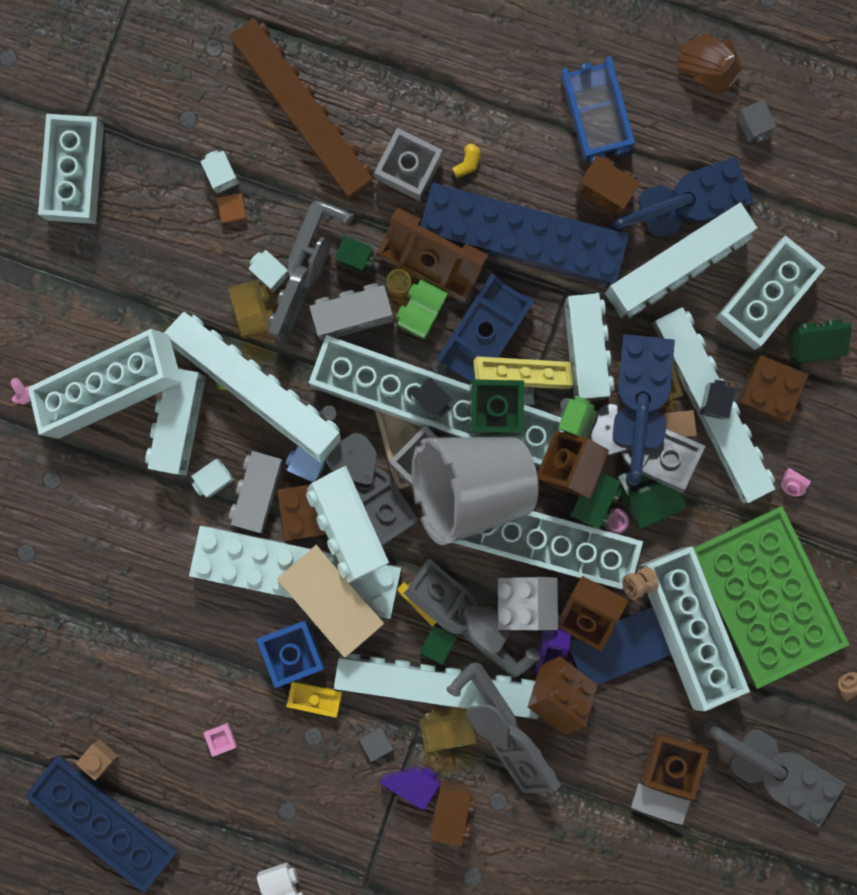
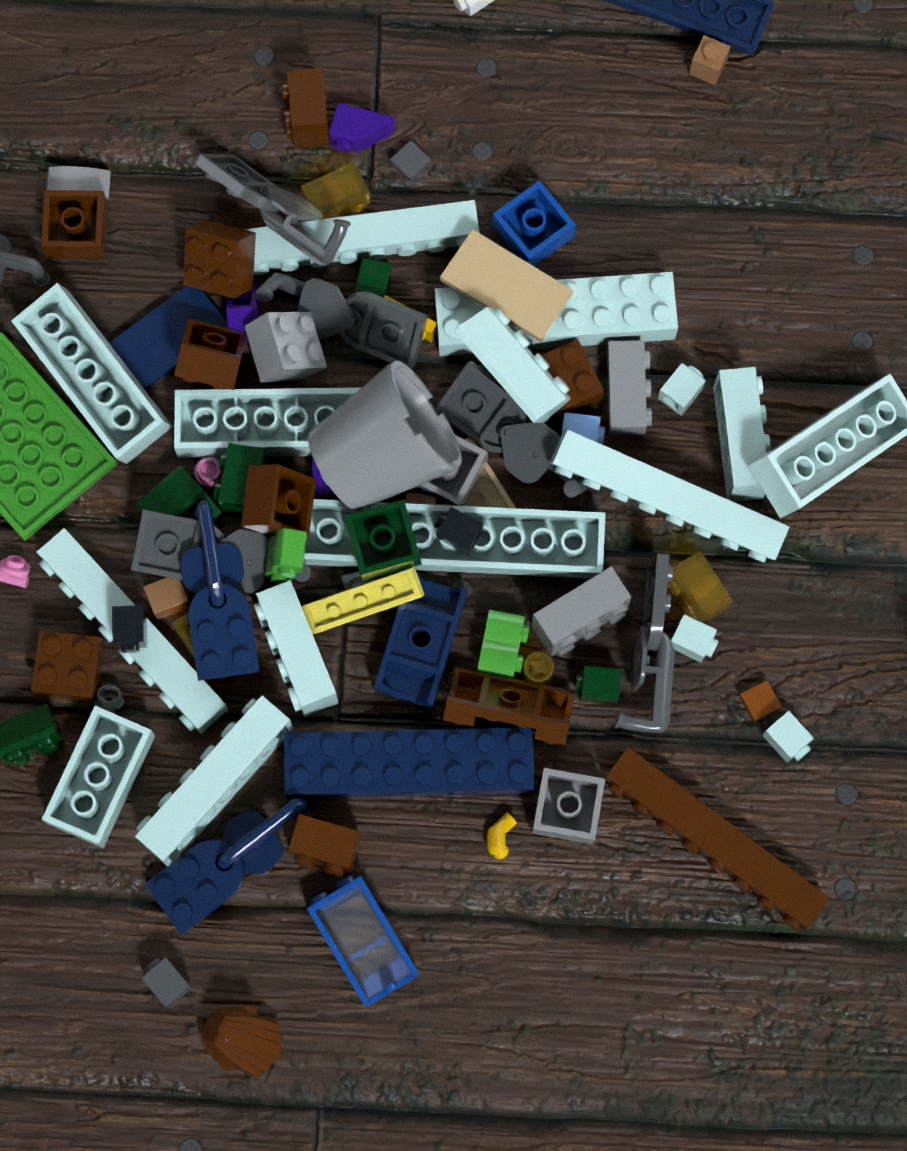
camera: 160 degrees right, 10 degrees down
(220, 739) = (583, 118): bright pink plate -> none
(314, 699) = (492, 186): yellow plate -> none
(642, 582) = (165, 398): medium nougat wheel -> none
(742, 361) = (109, 698): none -> dark grey plate

